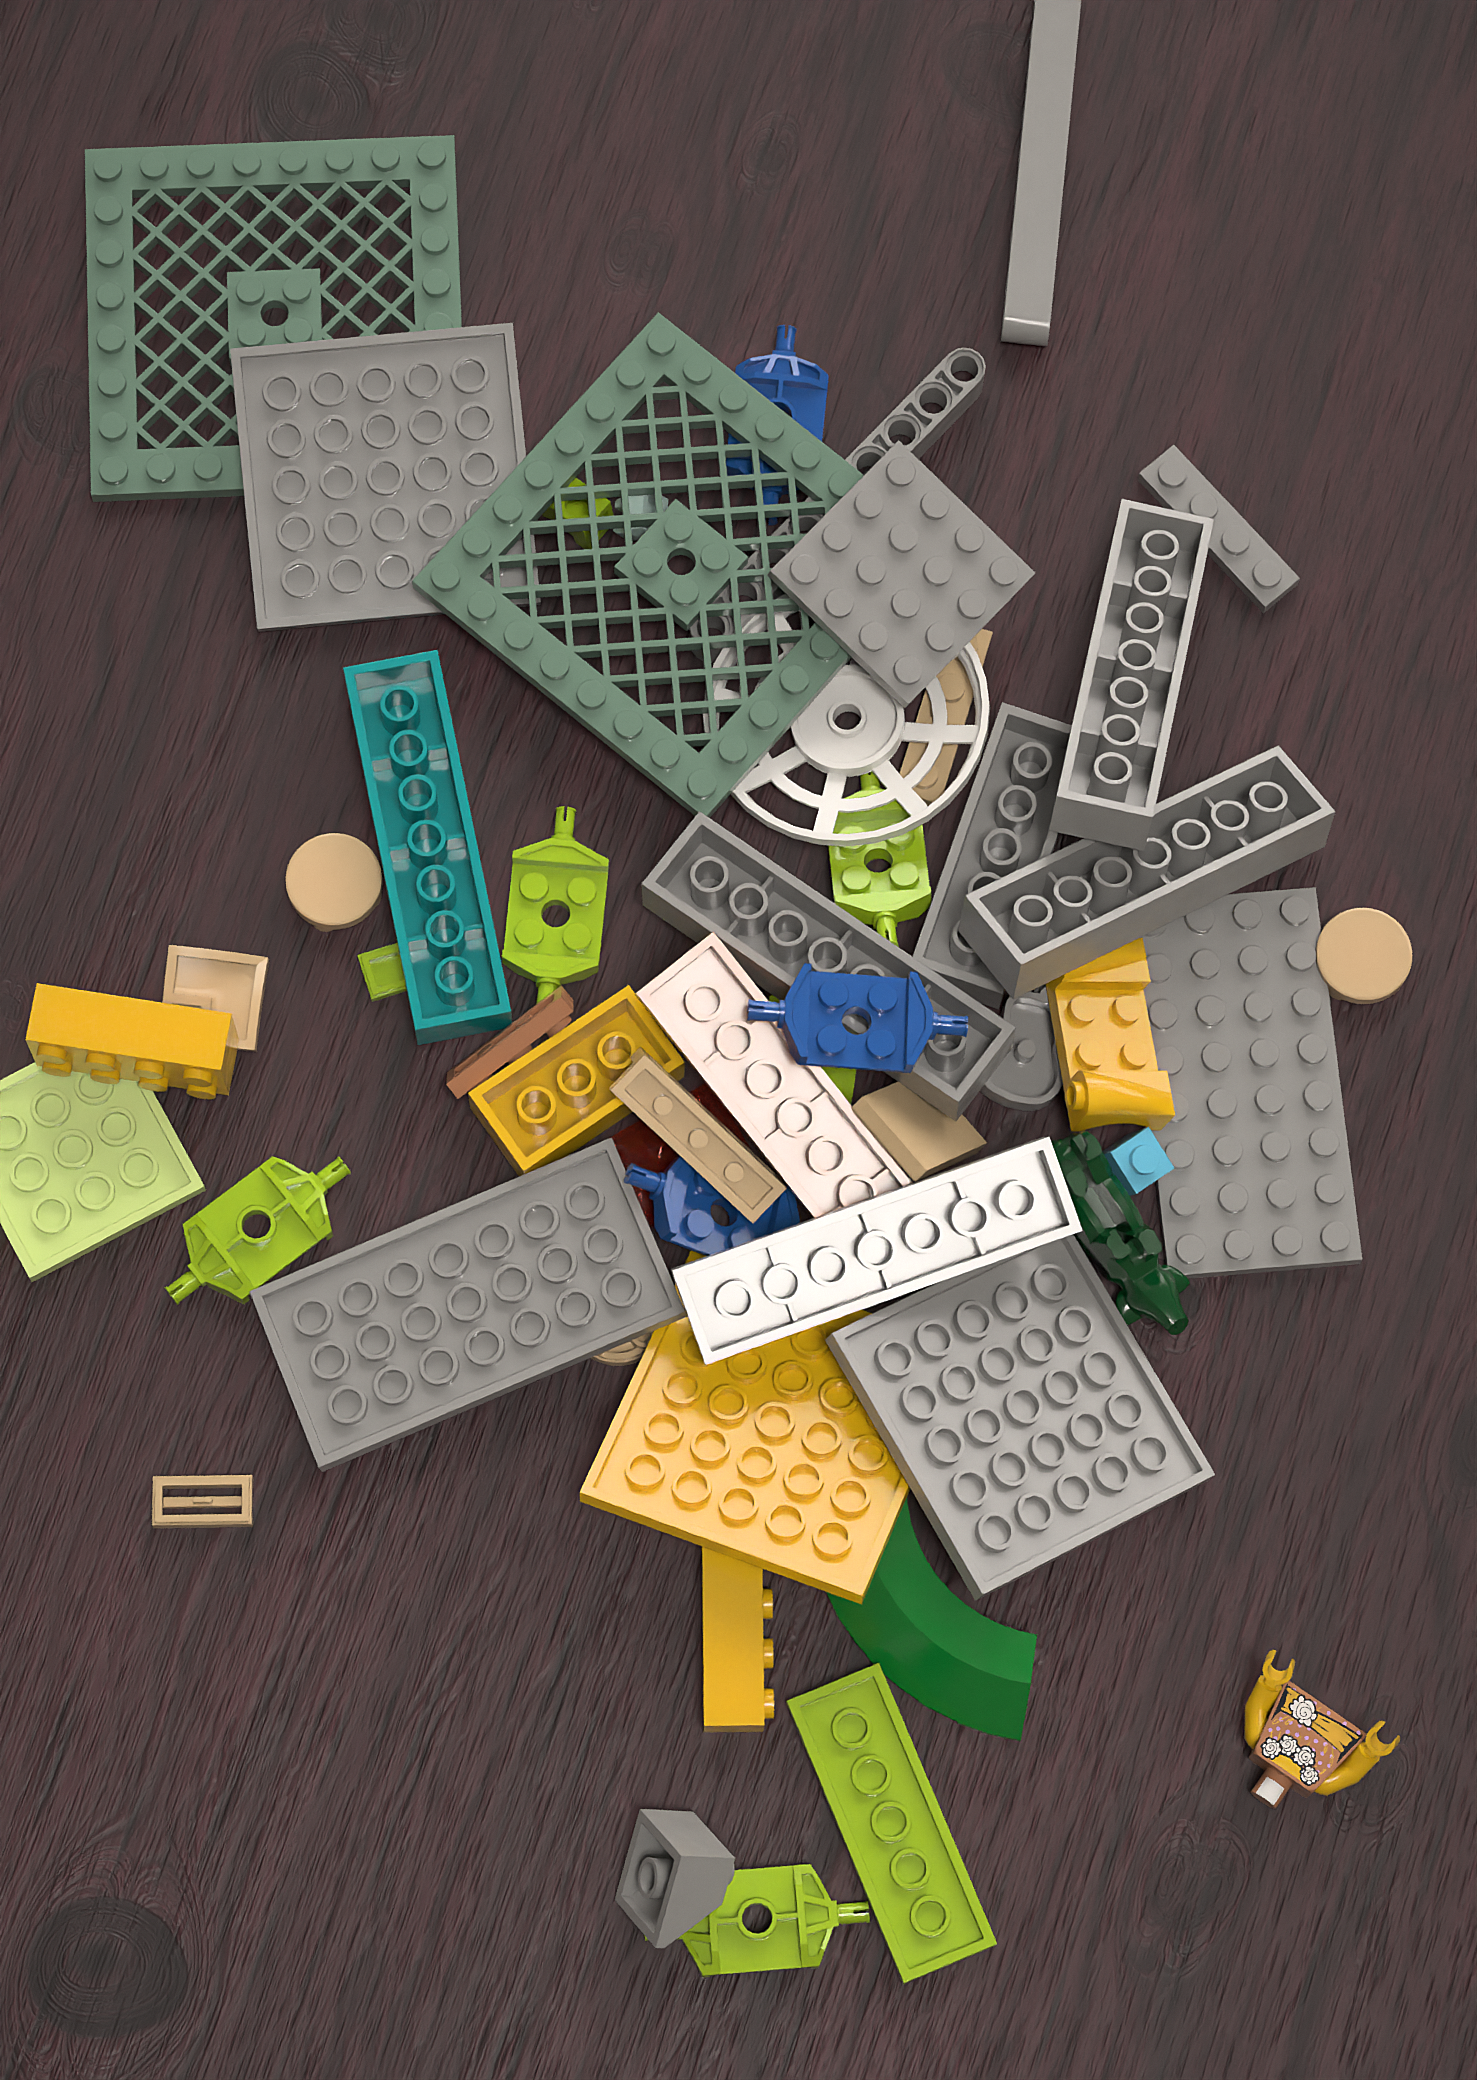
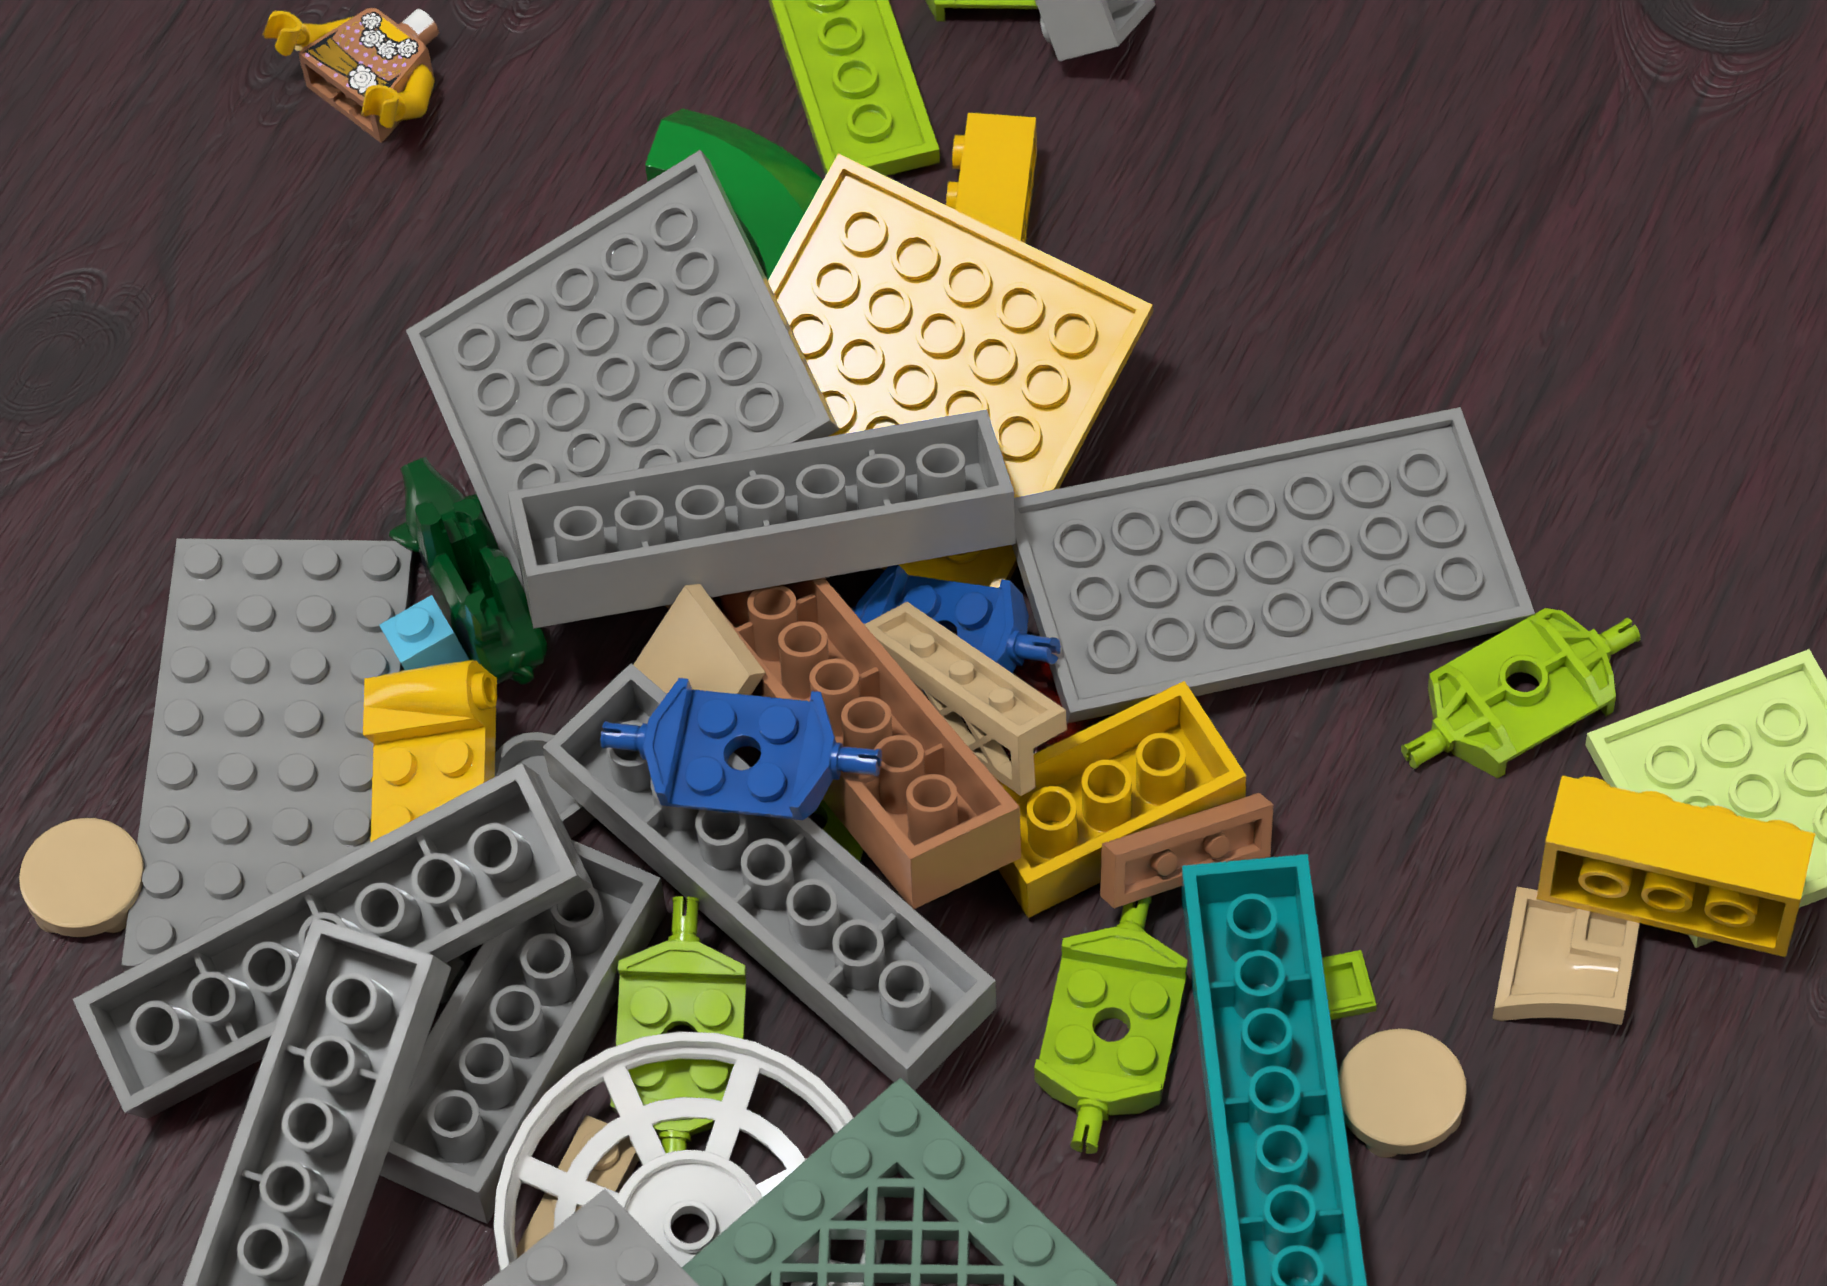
camera: 165 degrees left, 15 degrees down
(204, 1520) = (1600, 421): tan tile -> none

